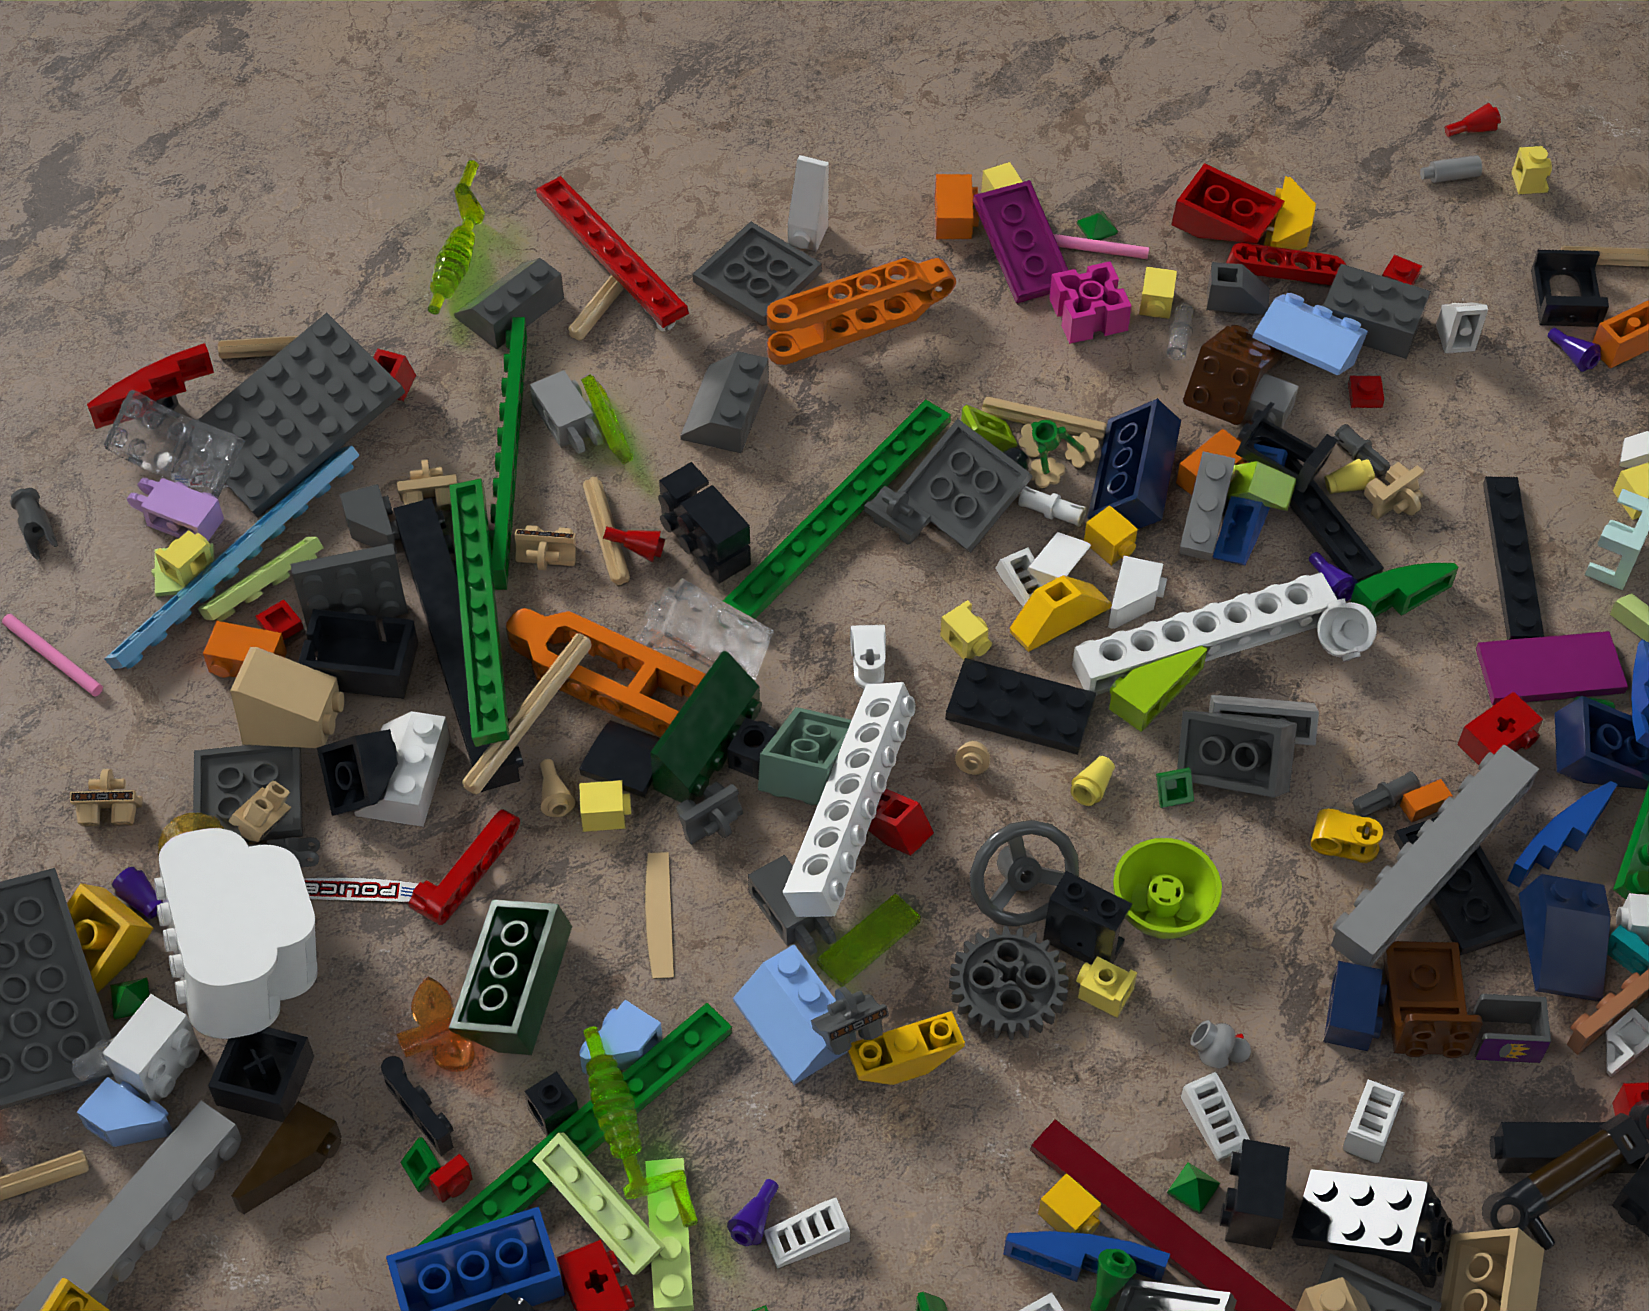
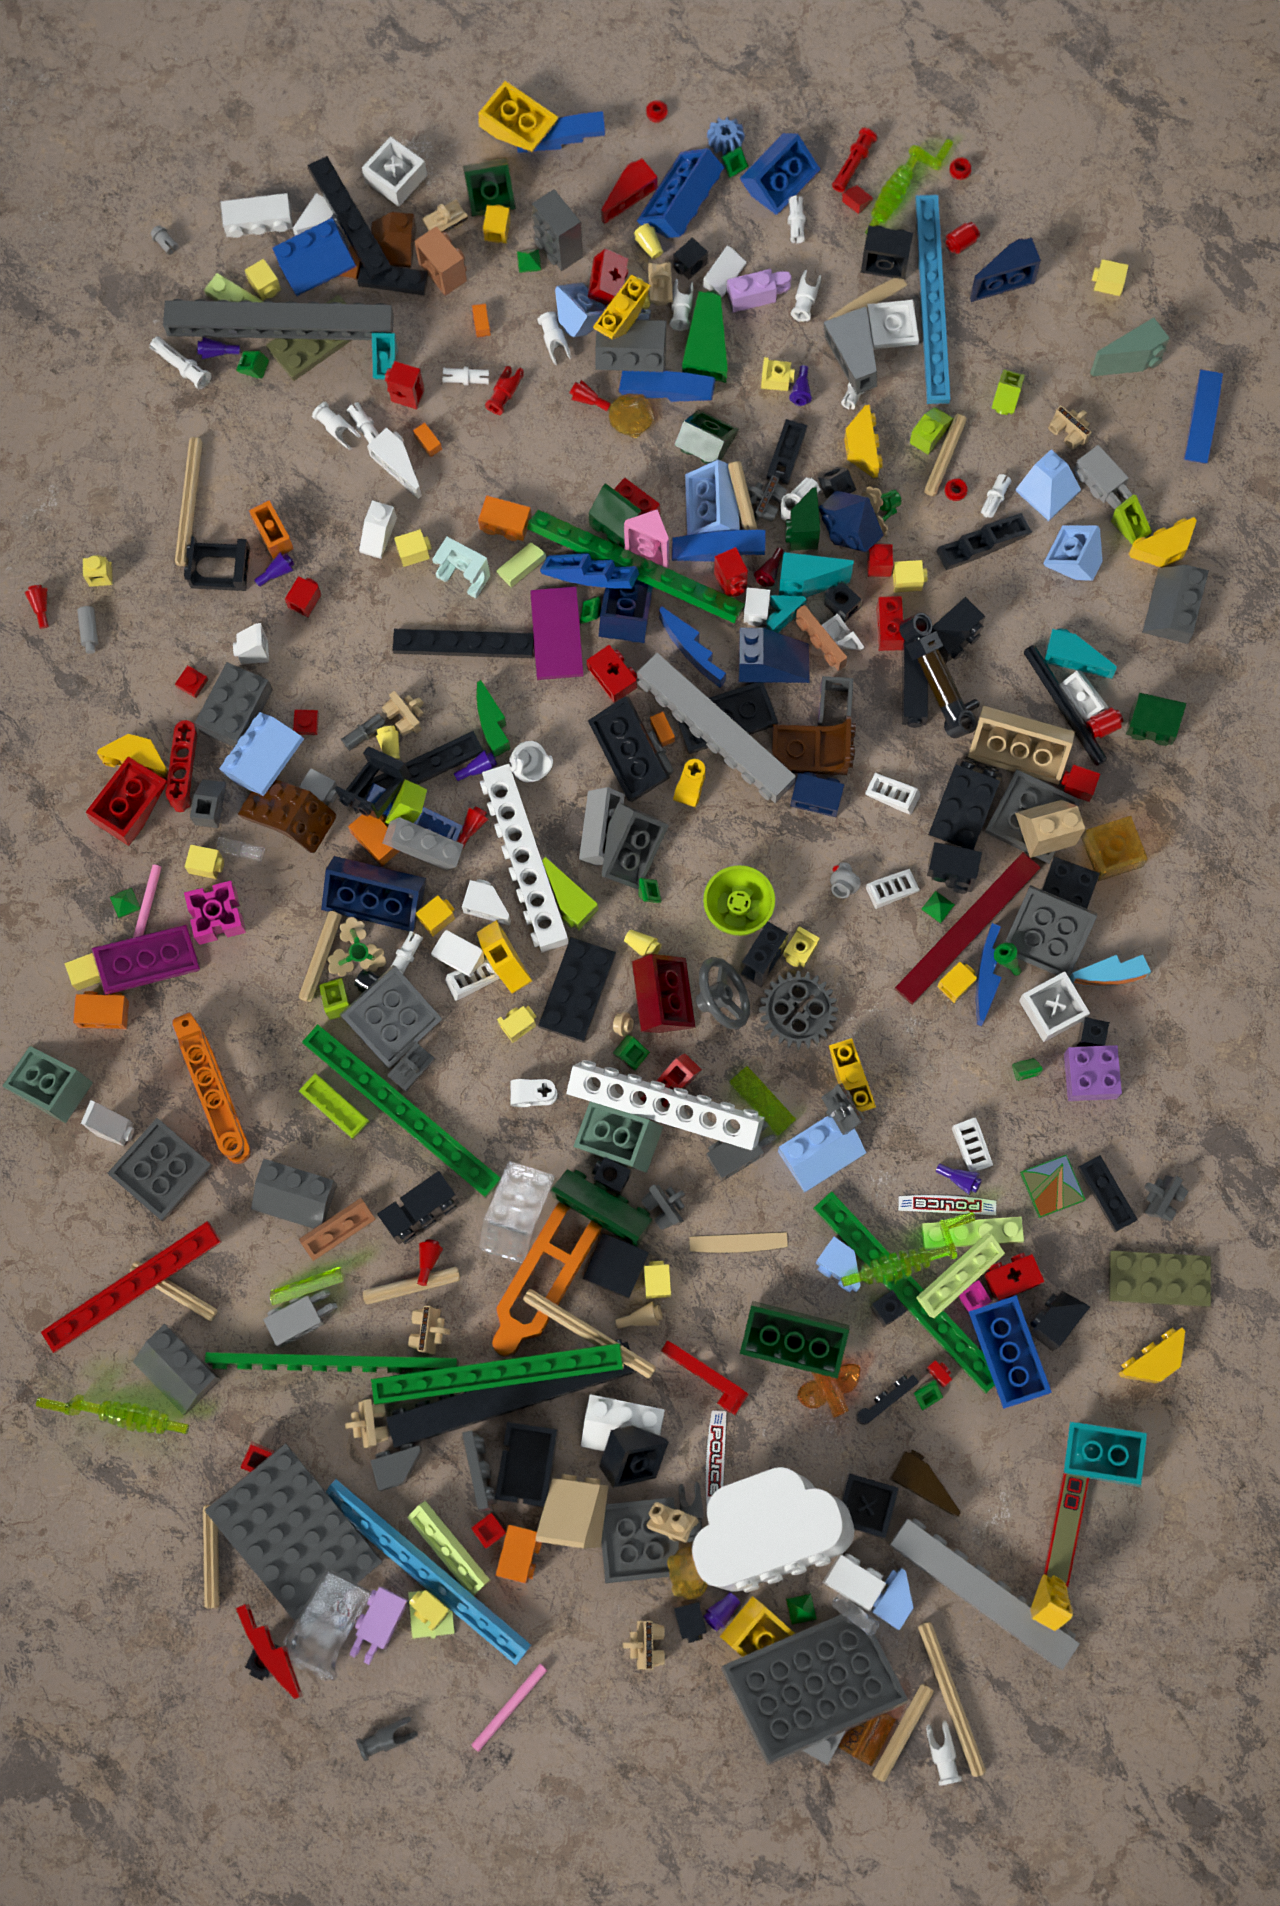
camera: 85 degrees left, 20 degrees up
(130, 849) = (690, 1622): none -> black brick
(567, 1231) = (974, 1297): none -> dark pink plate
(677, 442) = (337, 1229): none -> nougat plate
(714, 1202) = (947, 1204): none -> sticker
(842, 439) = (334, 1106): none -> lime plate
(861, 164) = (48, 1084): none -> sand green slope
(932, 774) = (631, 1052): none -> green slope
(1019, 795) = (663, 993): none -> dark red slope
(1251, 575) = (473, 822): none -> red cone
(1386, 752) = (628, 749): none -> black plate
(1543, 376) = (303, 596): none -> red brick

